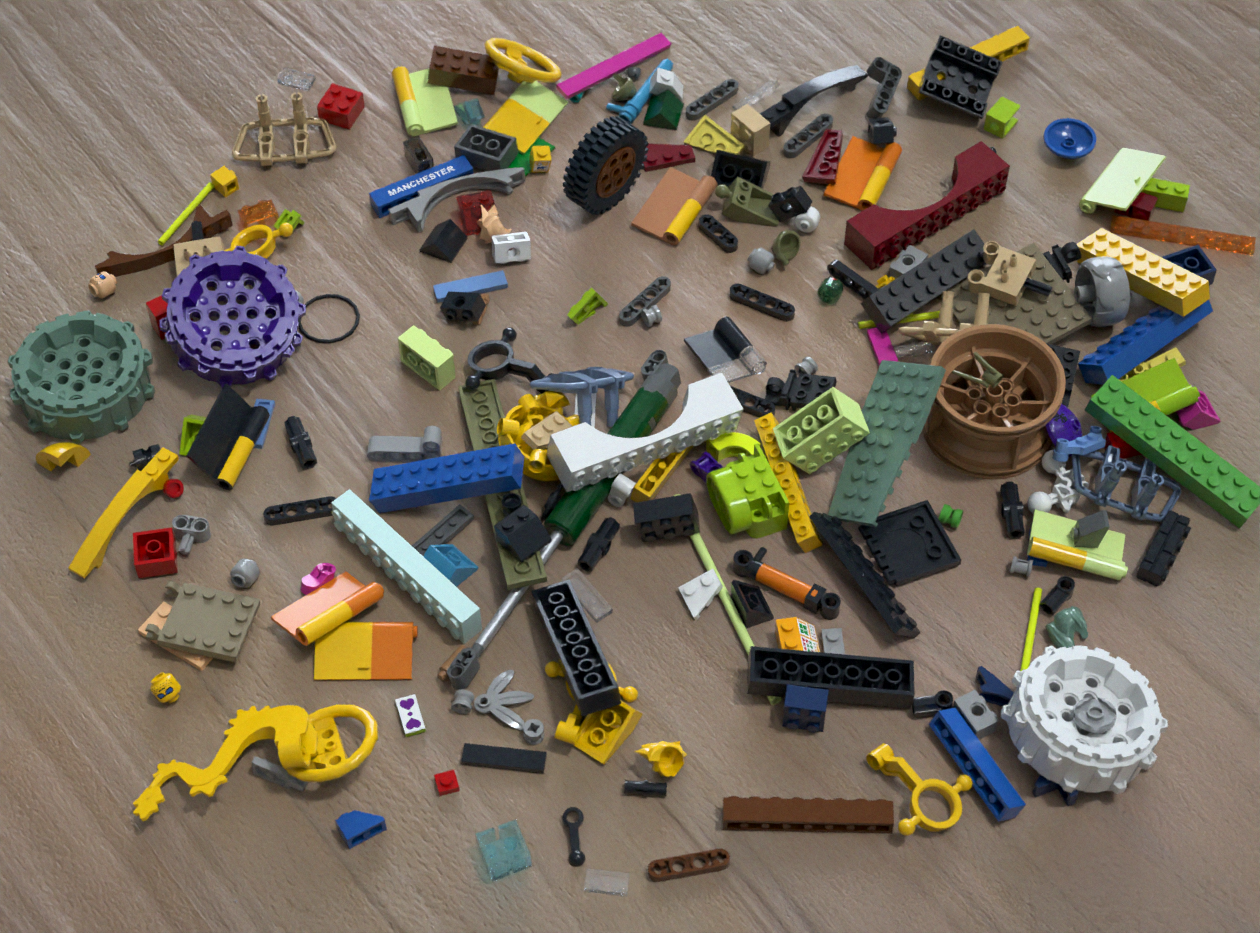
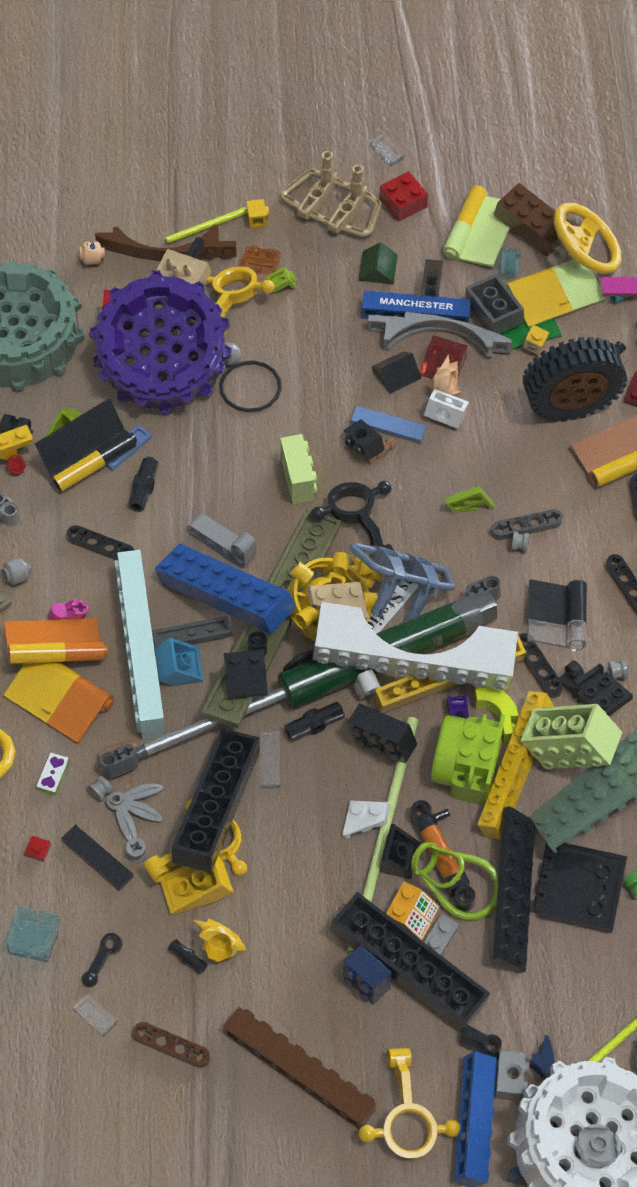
camera: 35 degrees right, 5 degrees up
(360, 170) = (378, 264): none -> dark green slope
(809, 572) = (461, 857): none -> lime animal

